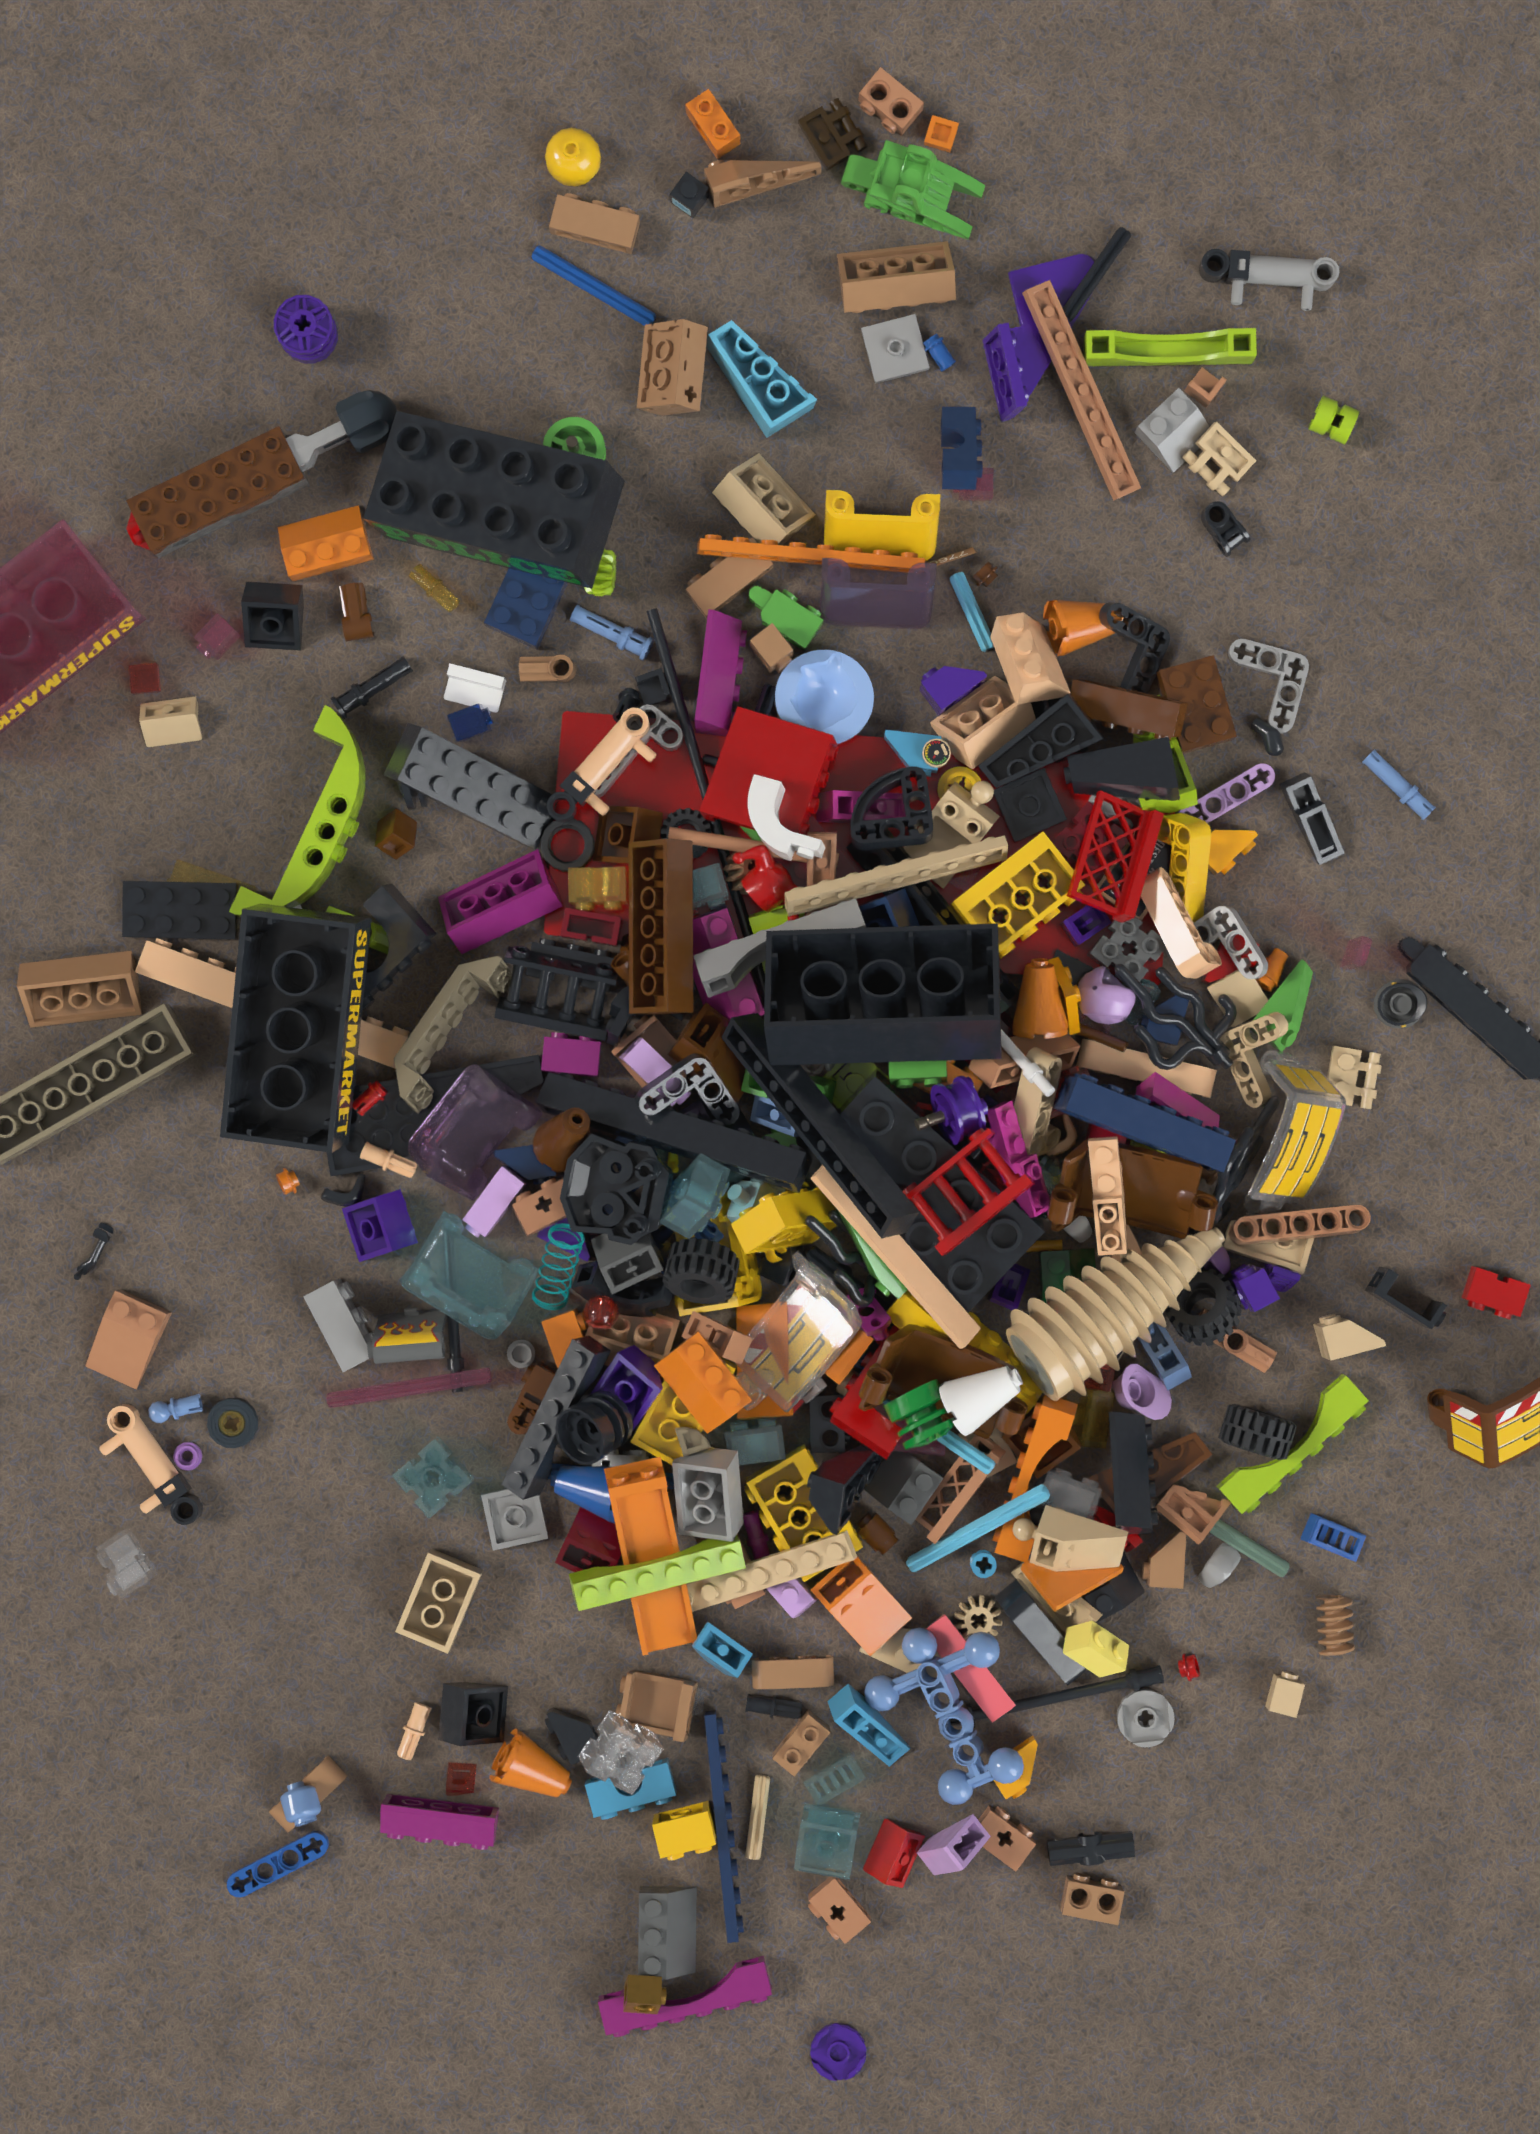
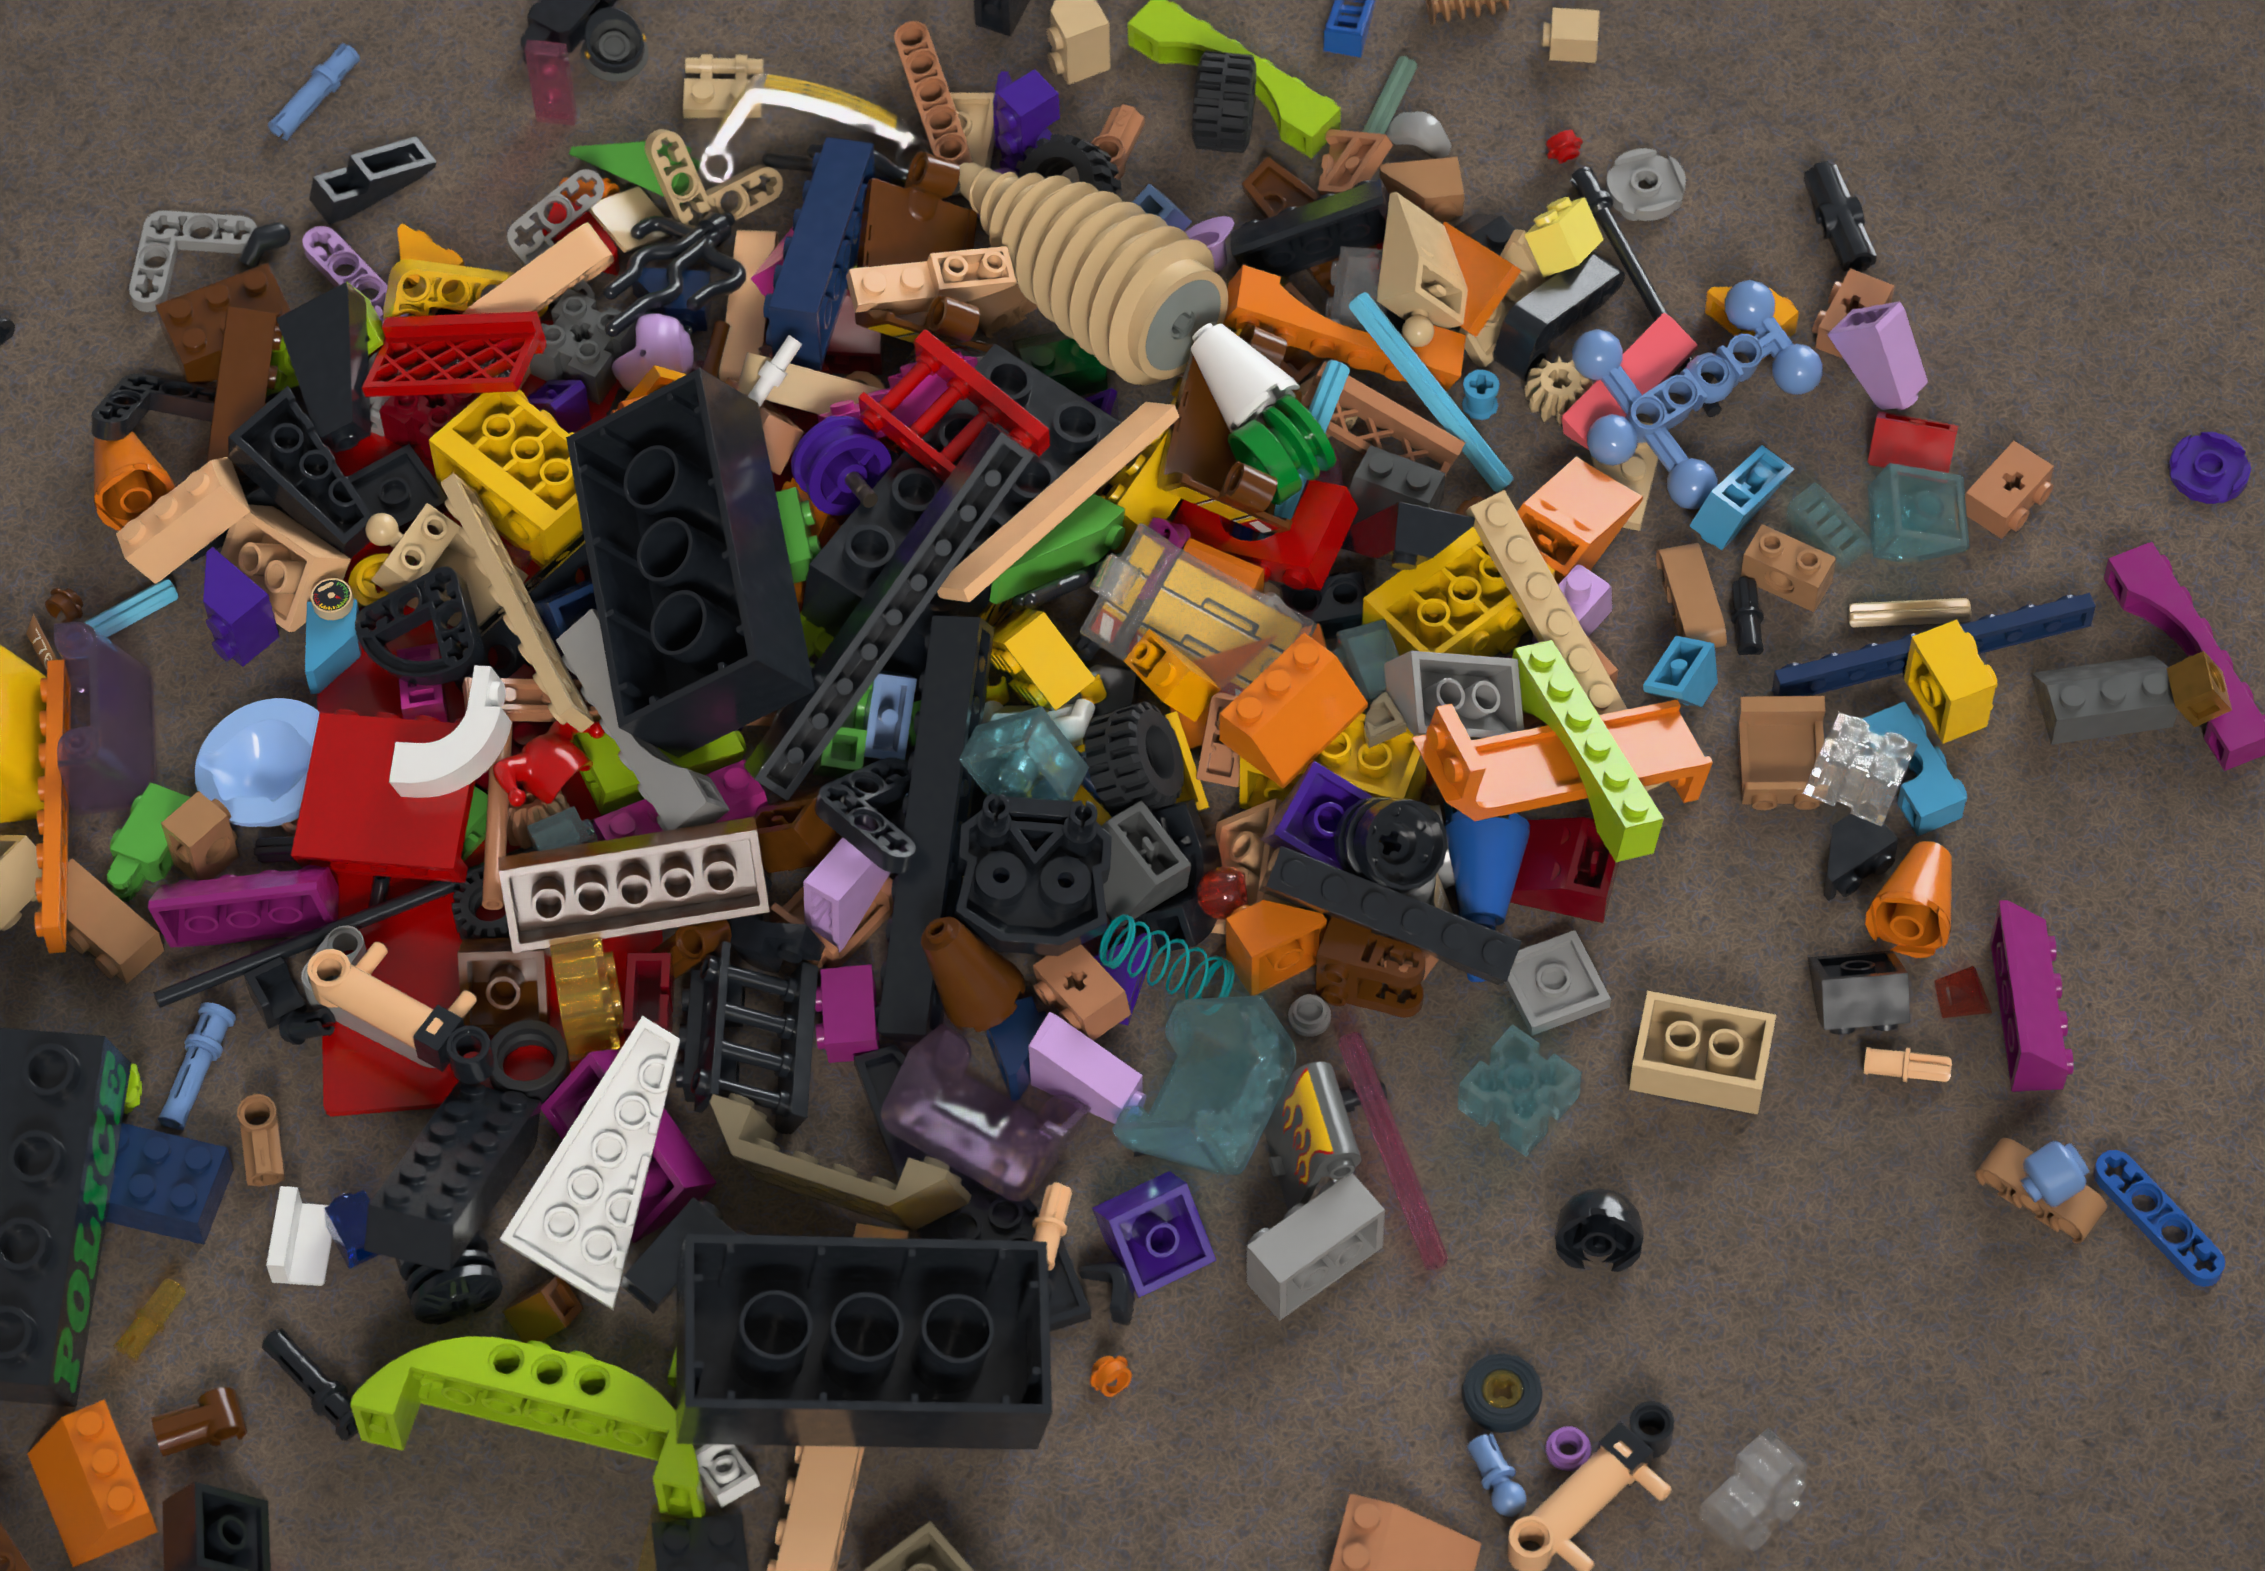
camera: 100 degrees left, 30 degrees down
(328, 1507) = (1600, 1225): none -> black cylinder
(455, 873) = (591, 1190): none -> white wing
(768, 1307) = (1171, 675): none -> light orange slope
(1089, 1906) = (1908, 203): medium nougat brick -> none

